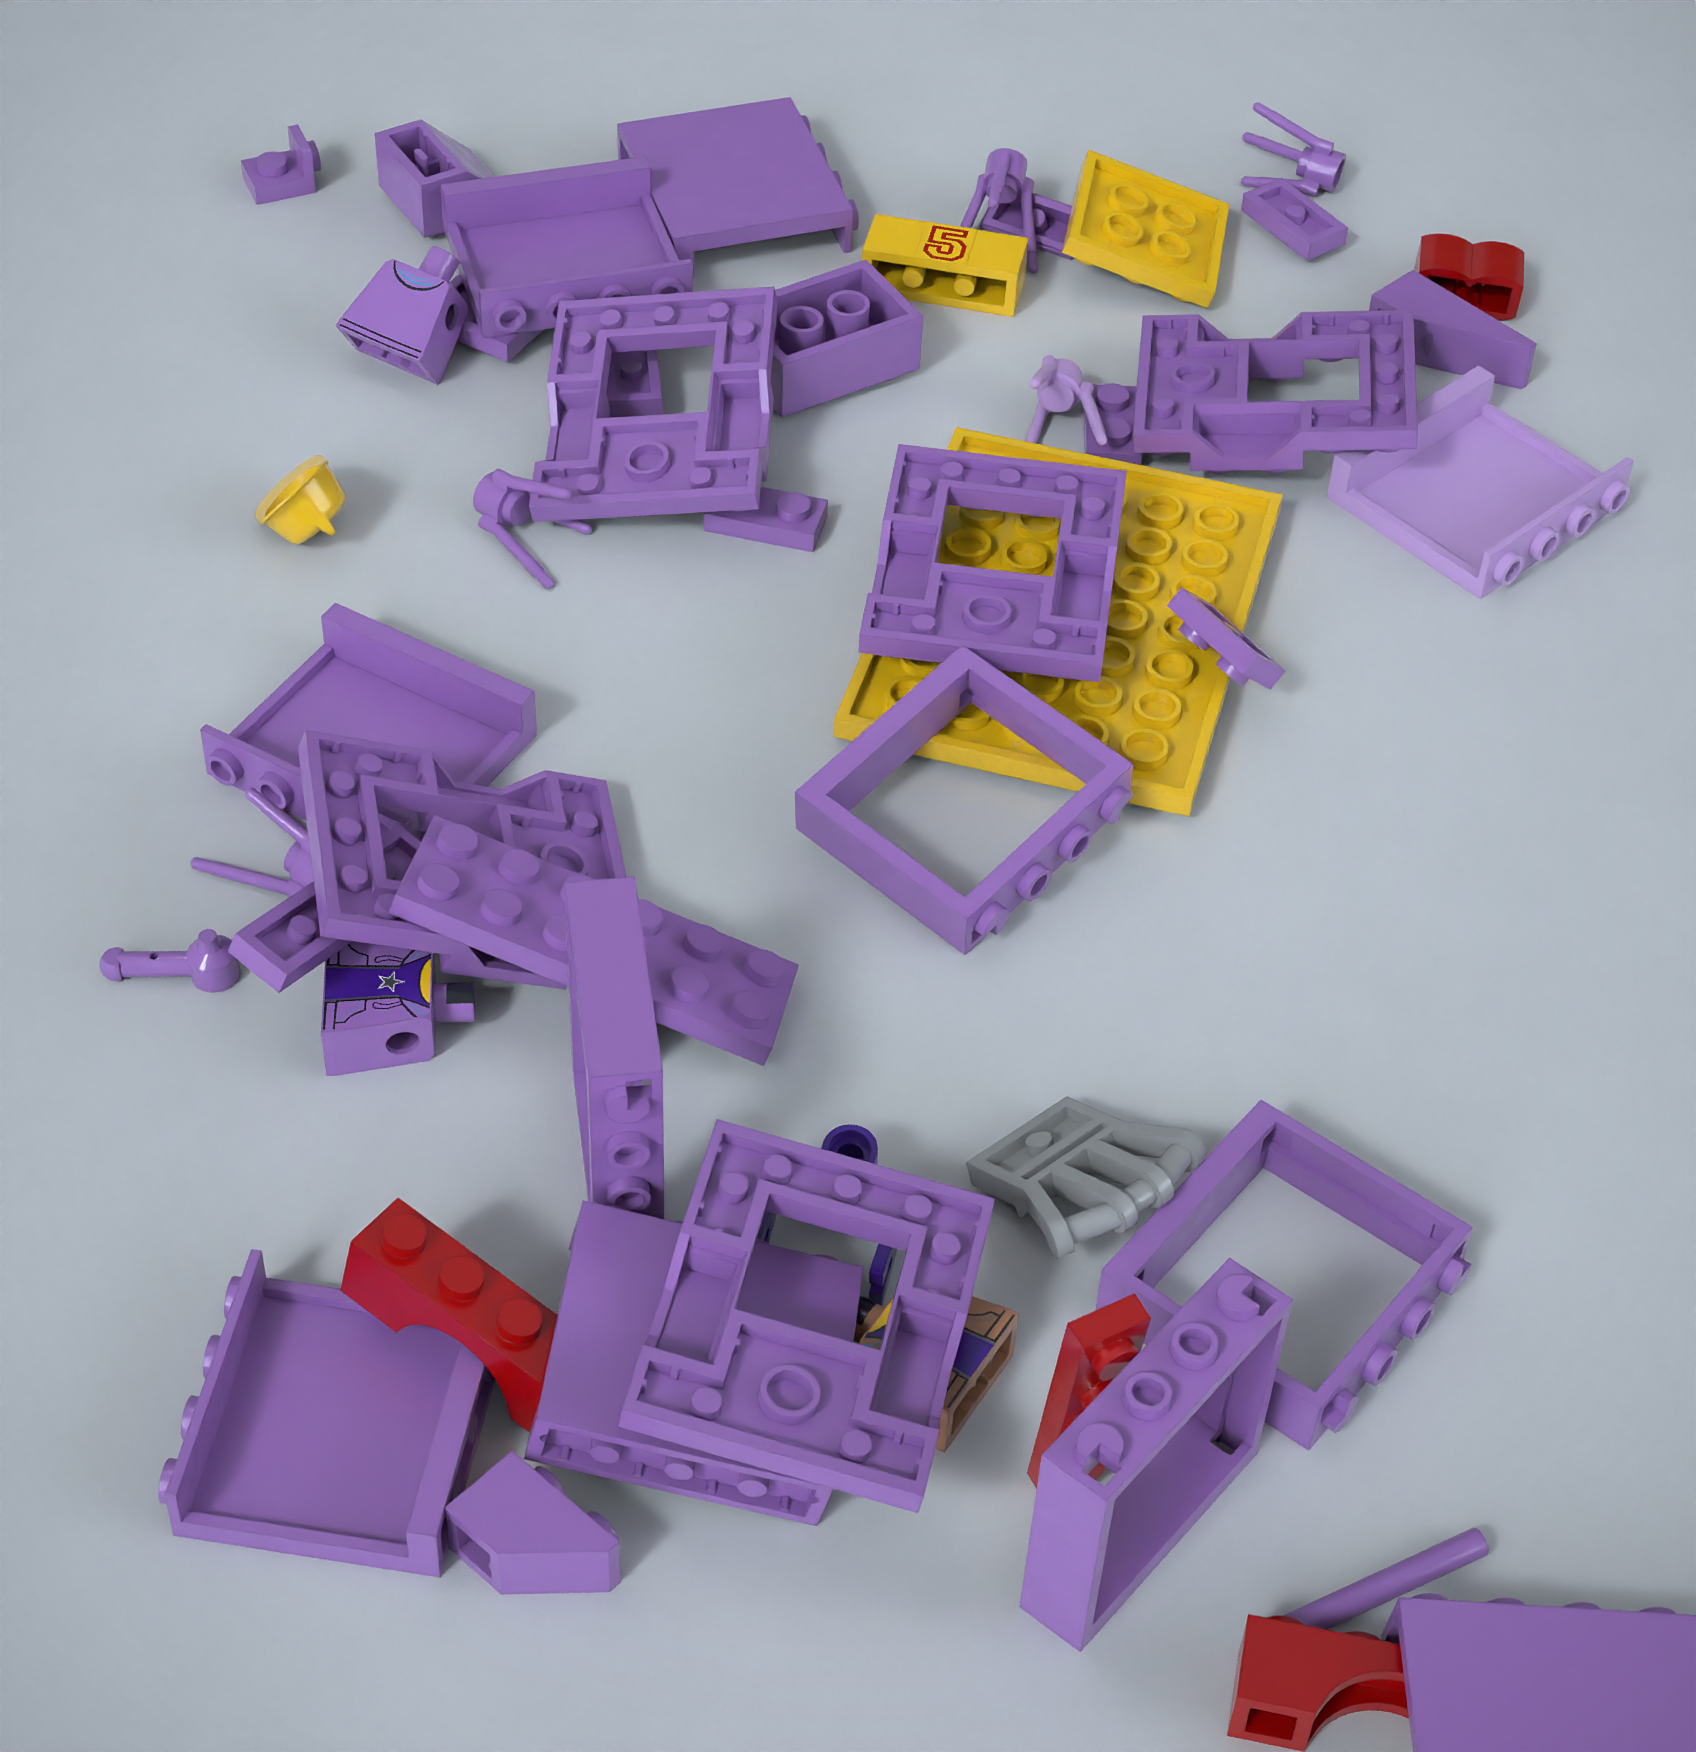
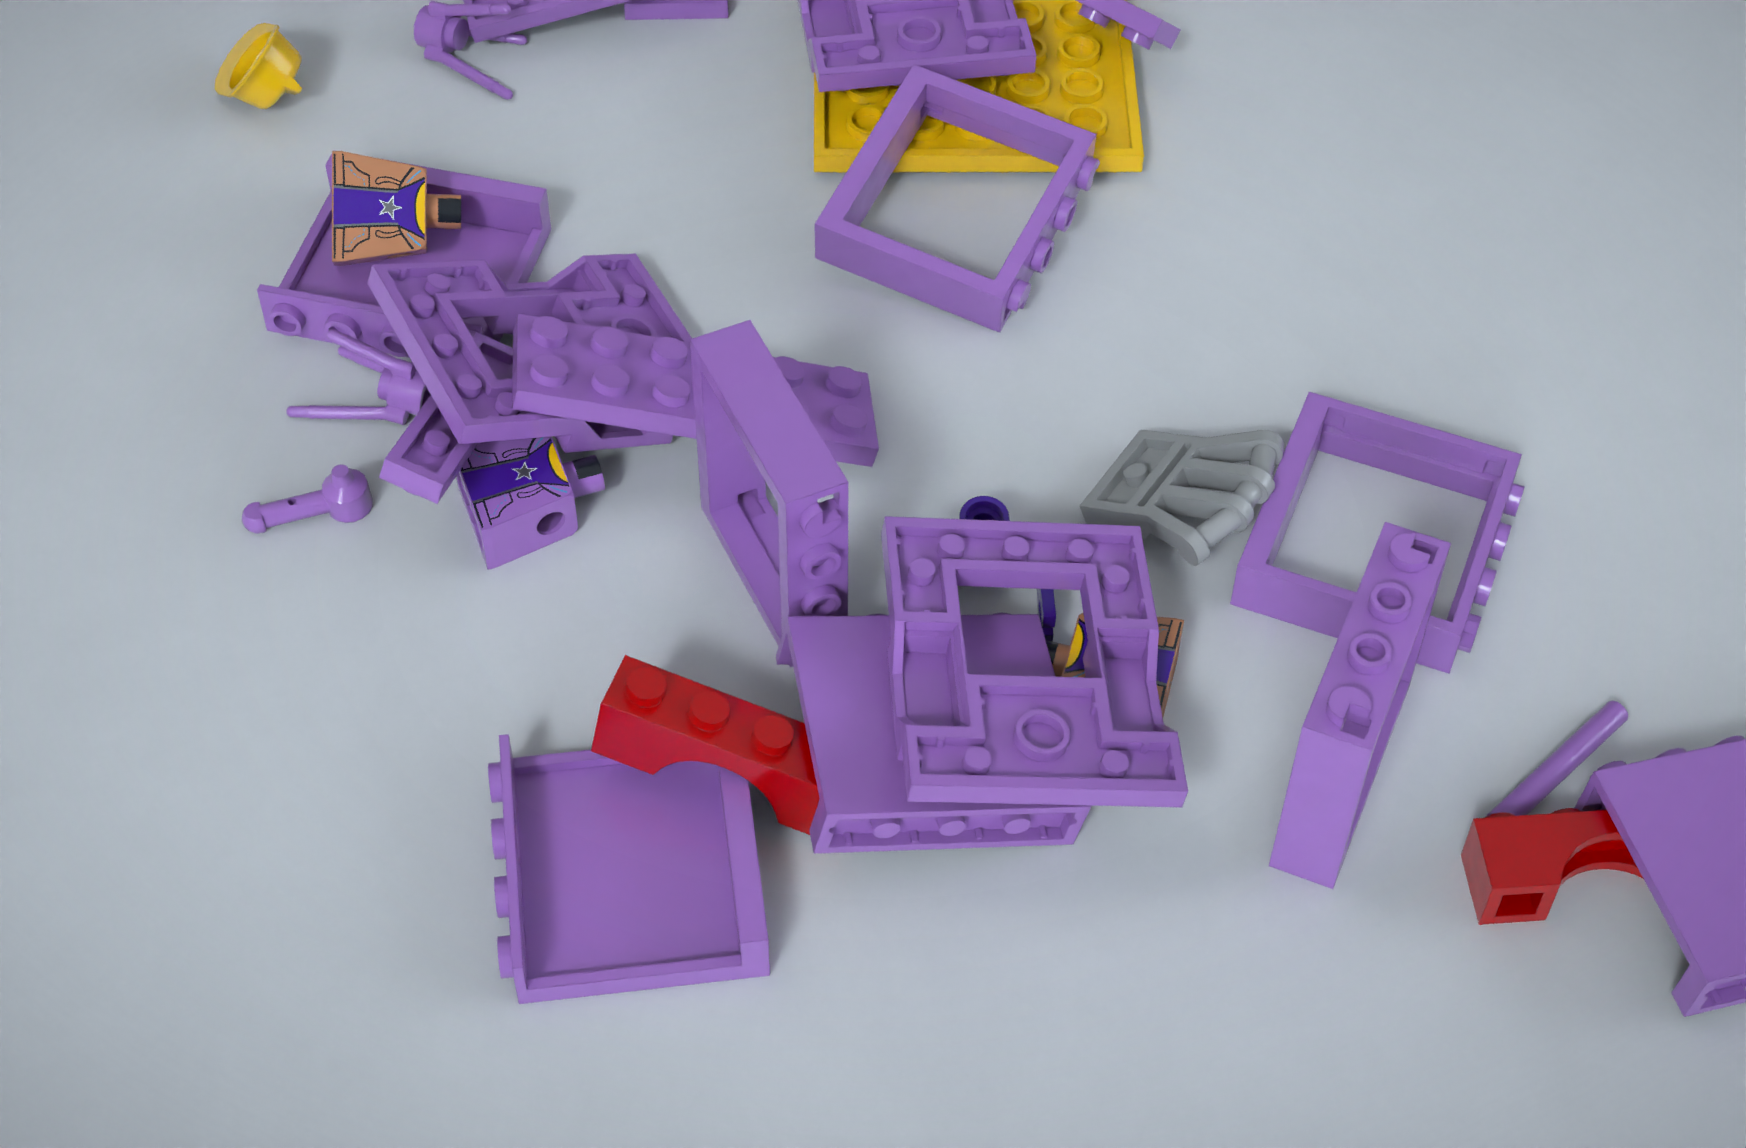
camera: 15 degrees left, 5 degrees up
(358, 676) = (384, 209): none -> torso
(529, 1536) = (842, 918): medium lavender slope -> none
(1089, 1358) = (1290, 669): red plate -> none

